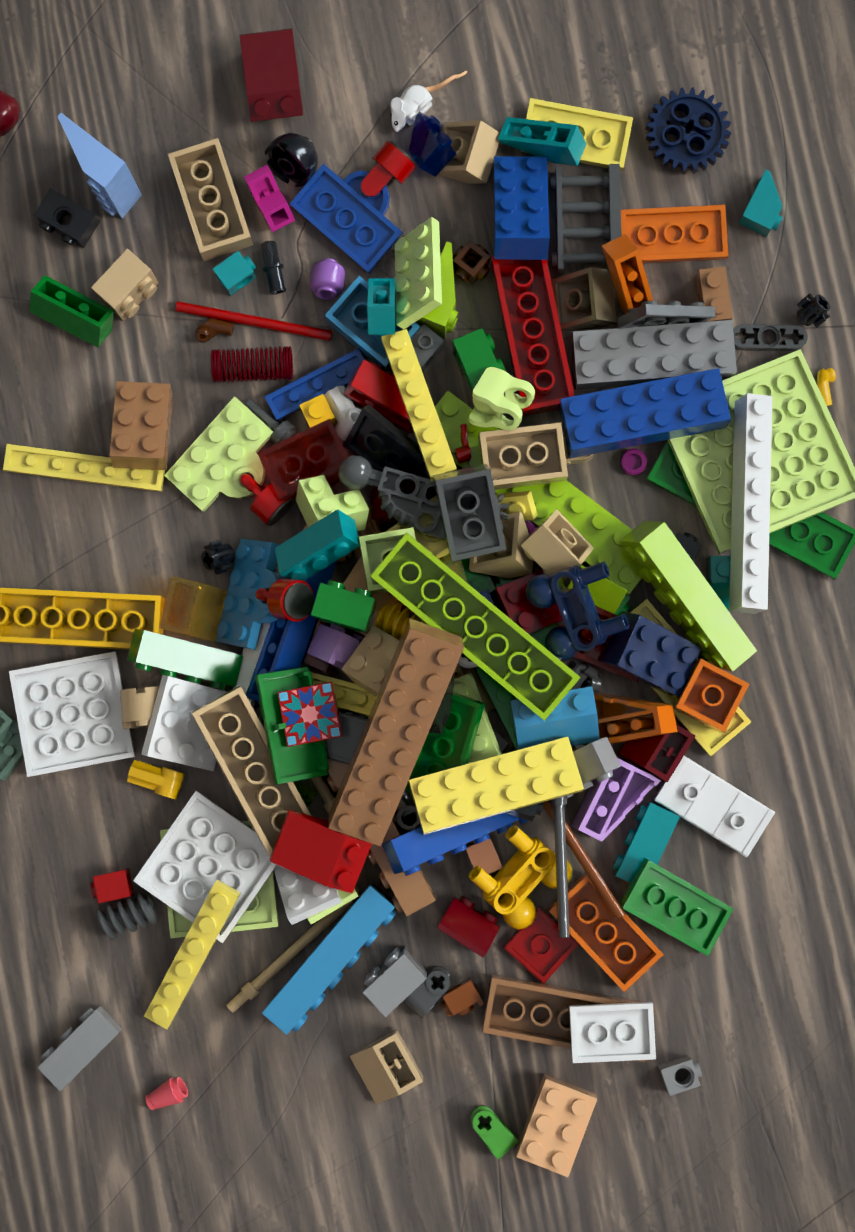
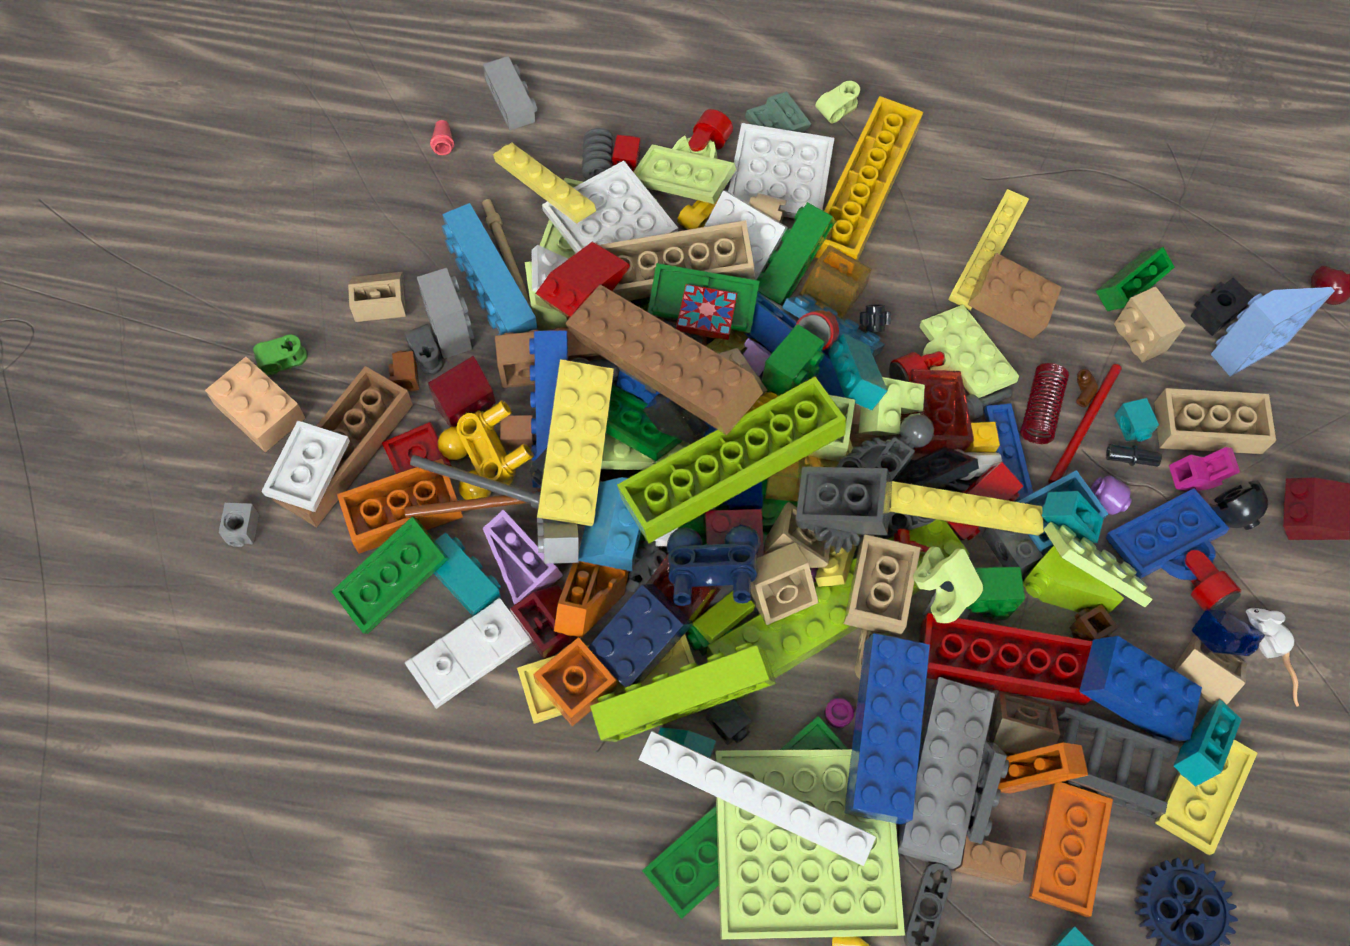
camera: 105 degrees right, 20 degrees down
(107, 812) = (692, 164): none -> yellowish green plate

